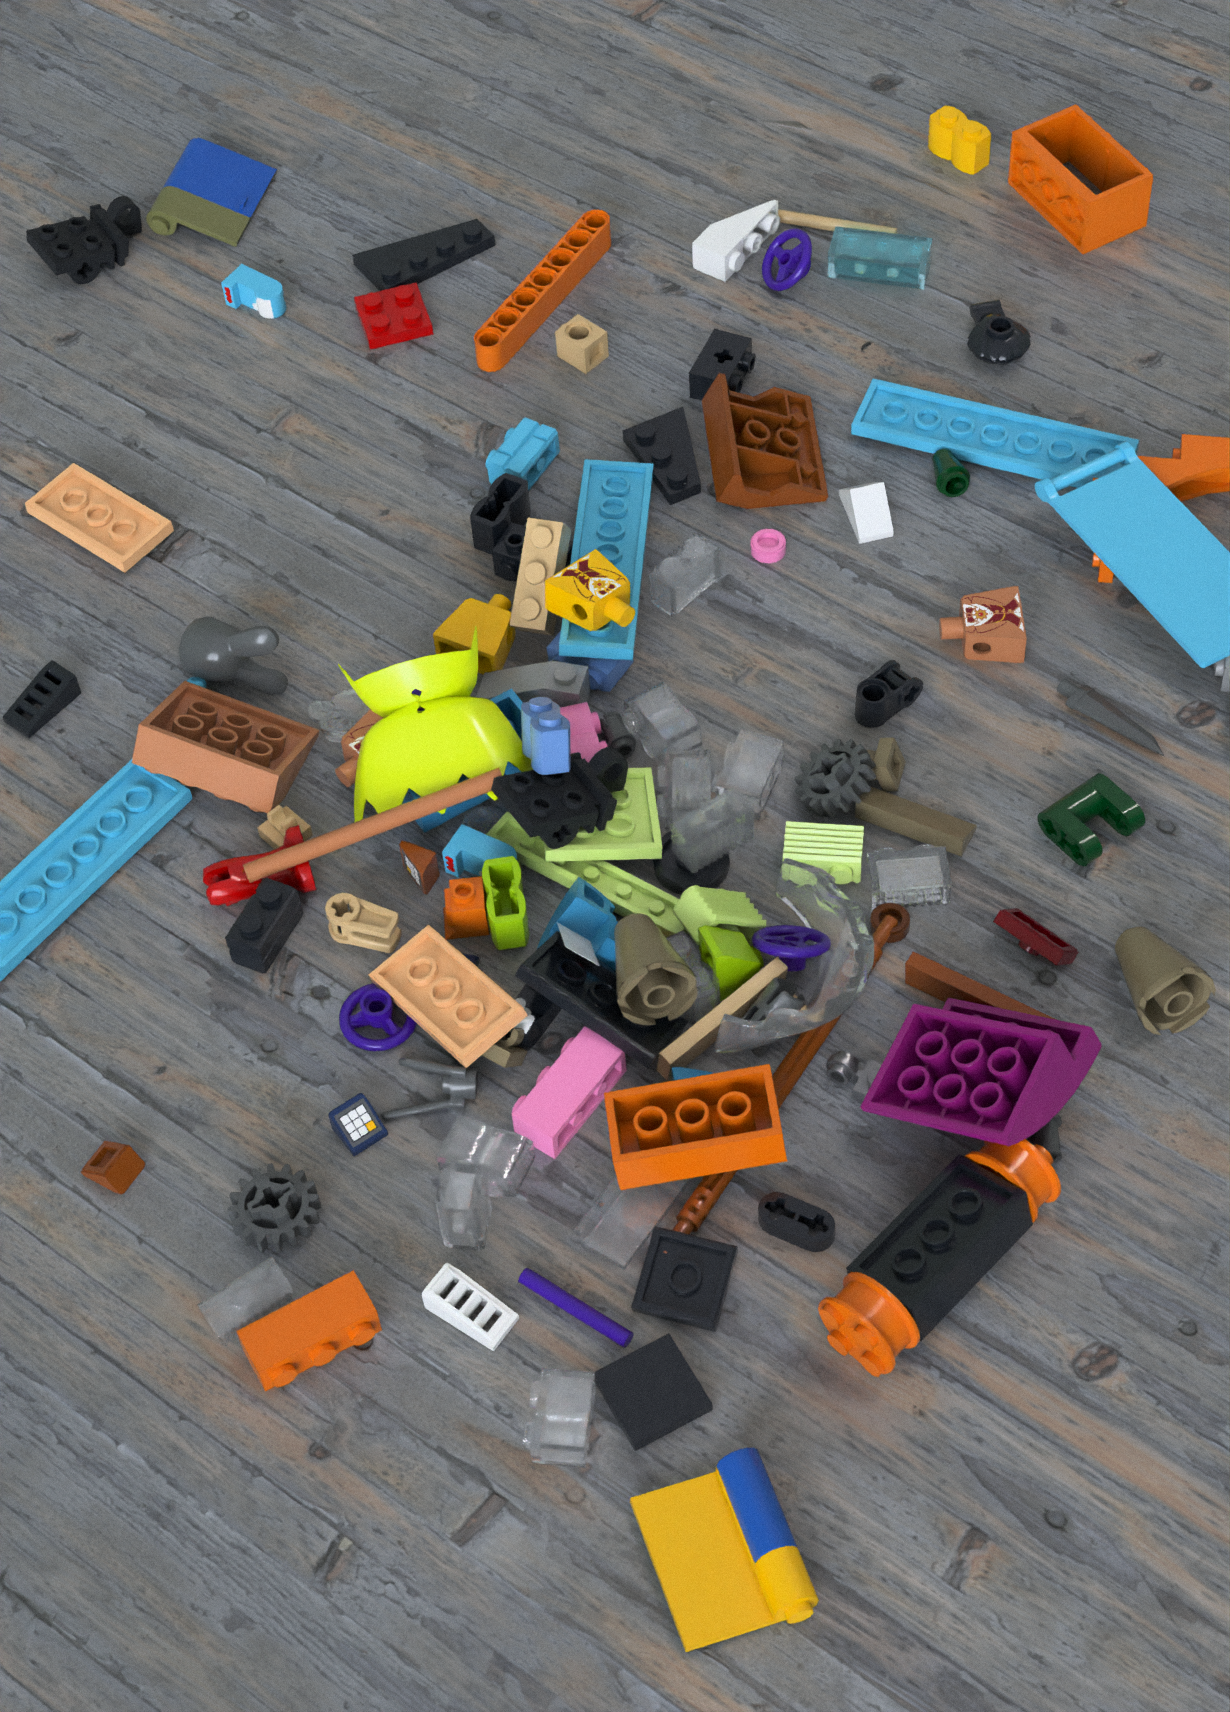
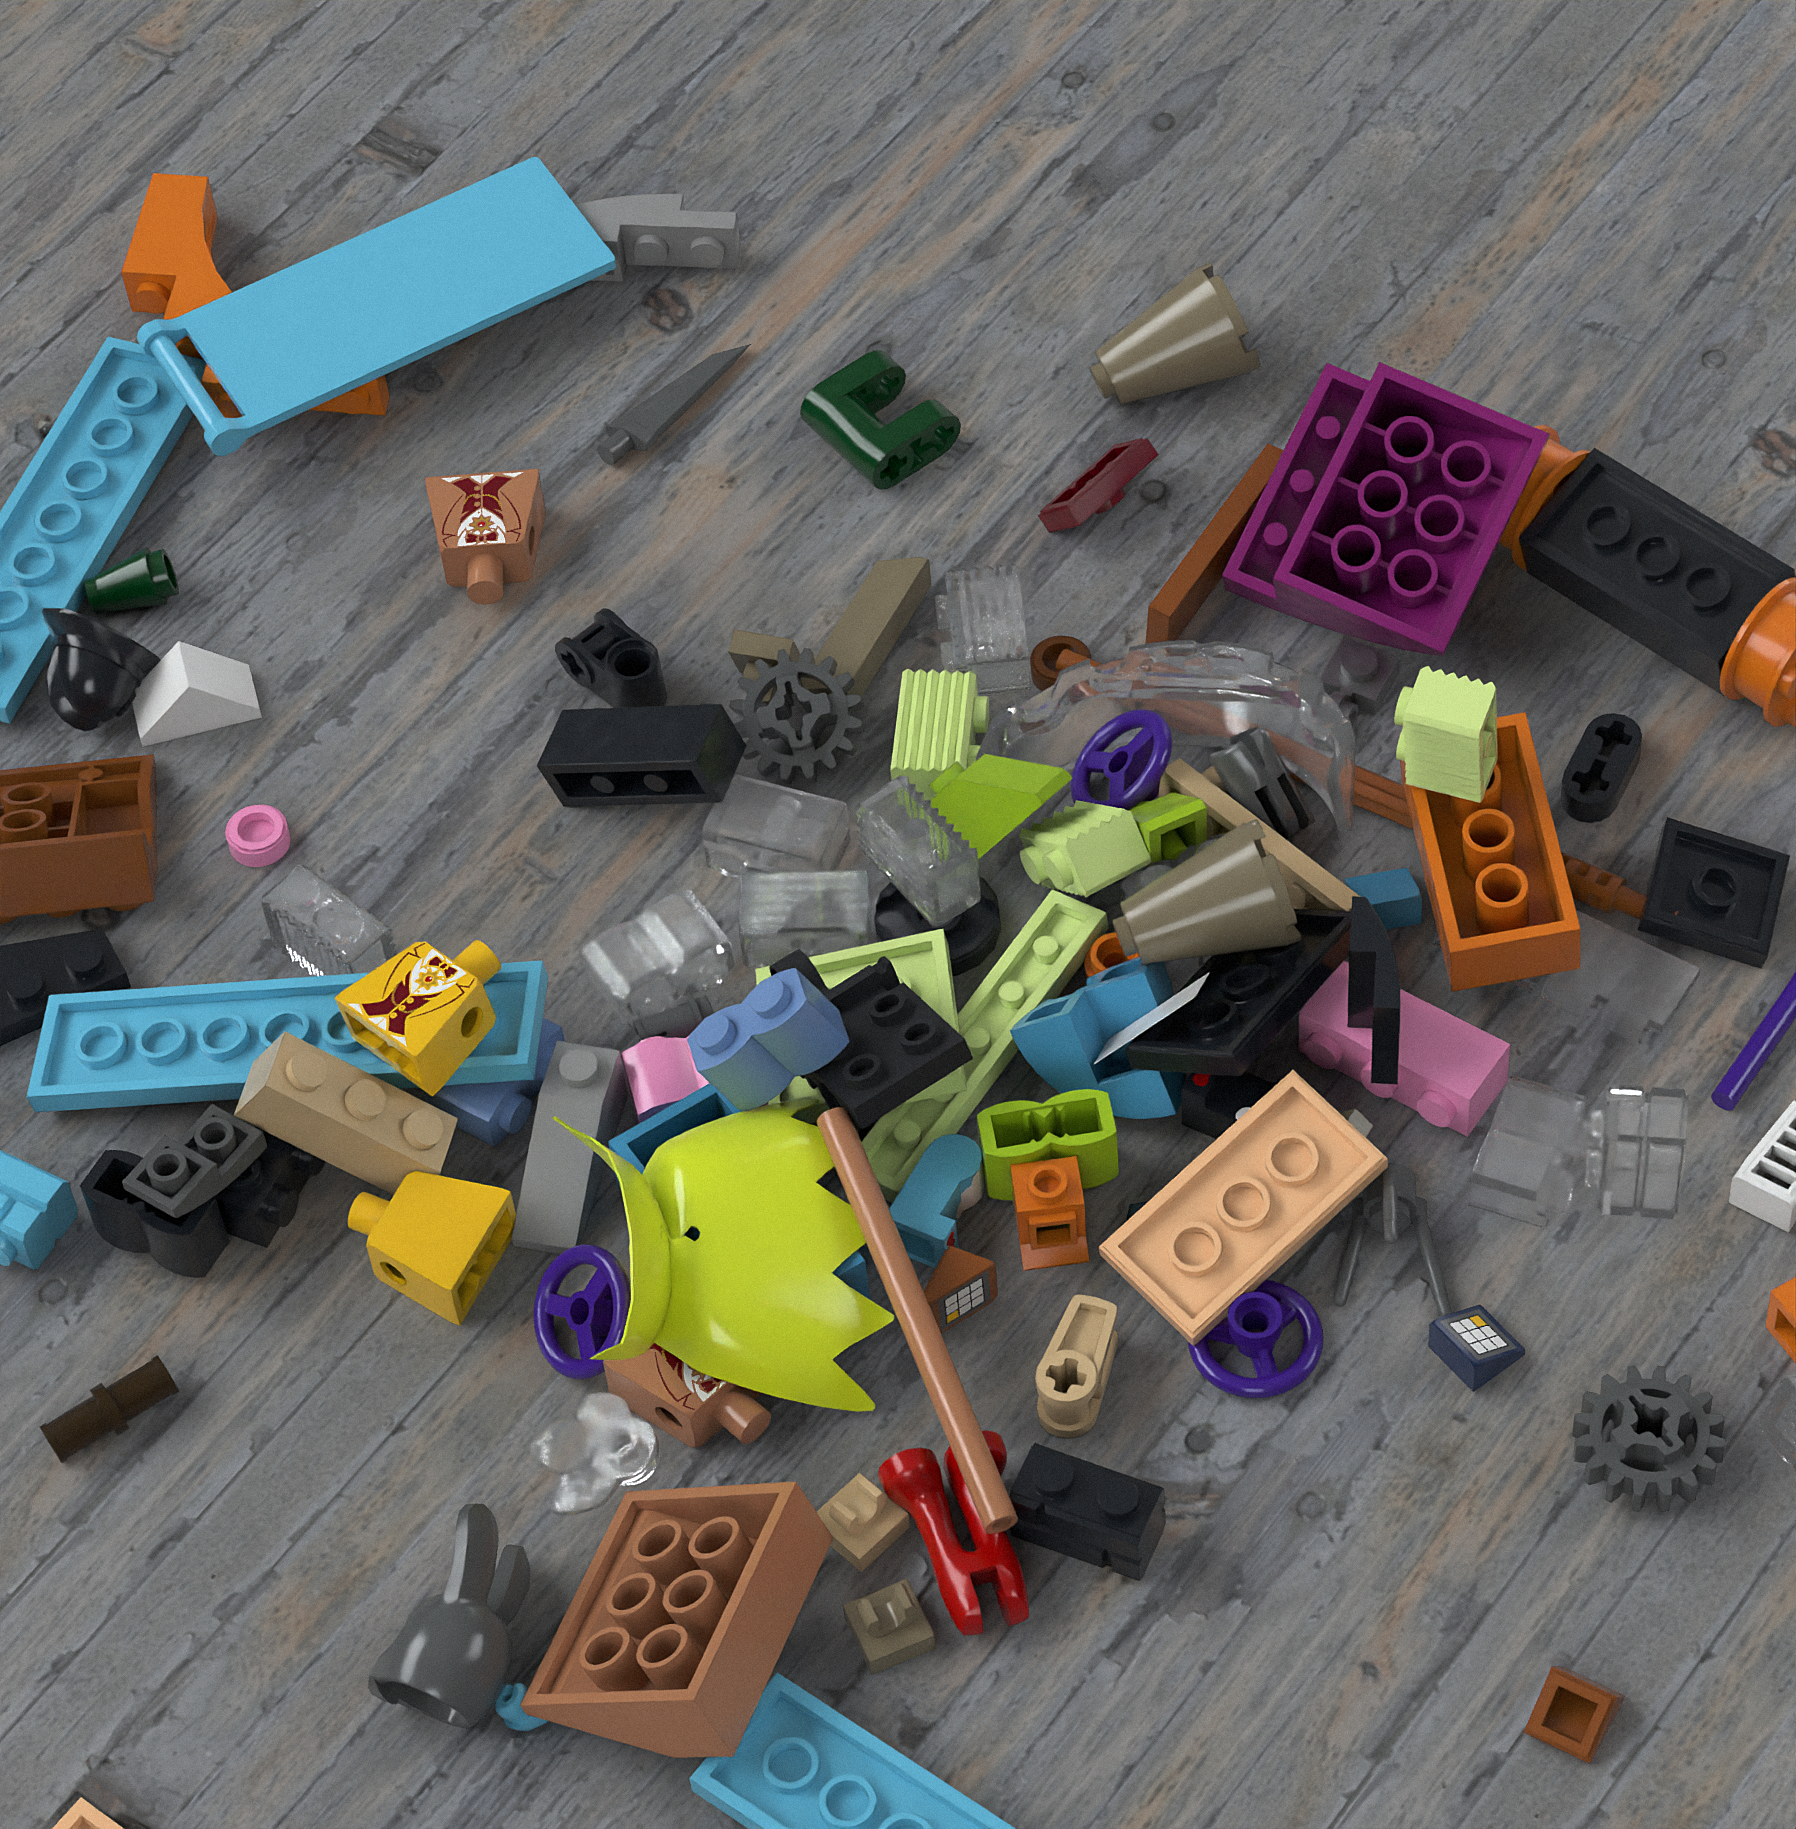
camera: 90 degrees left, 0 degrees up
(218, 842) = (889, 1626): none -> dark tan tile
(393, 514) = (109, 1409): none -> dark brown pin
(503, 509) = (199, 1165): none -> dark grey slope
(566, 1045) = (1374, 989): none -> black slope
(734, 1068) = (1448, 734): none -> yellowish green brick
(754, 863) = (993, 796): none -> lime slope
(799, 699) = (642, 755): none -> black brick
(878, 455) = (92, 669): none -> black piece

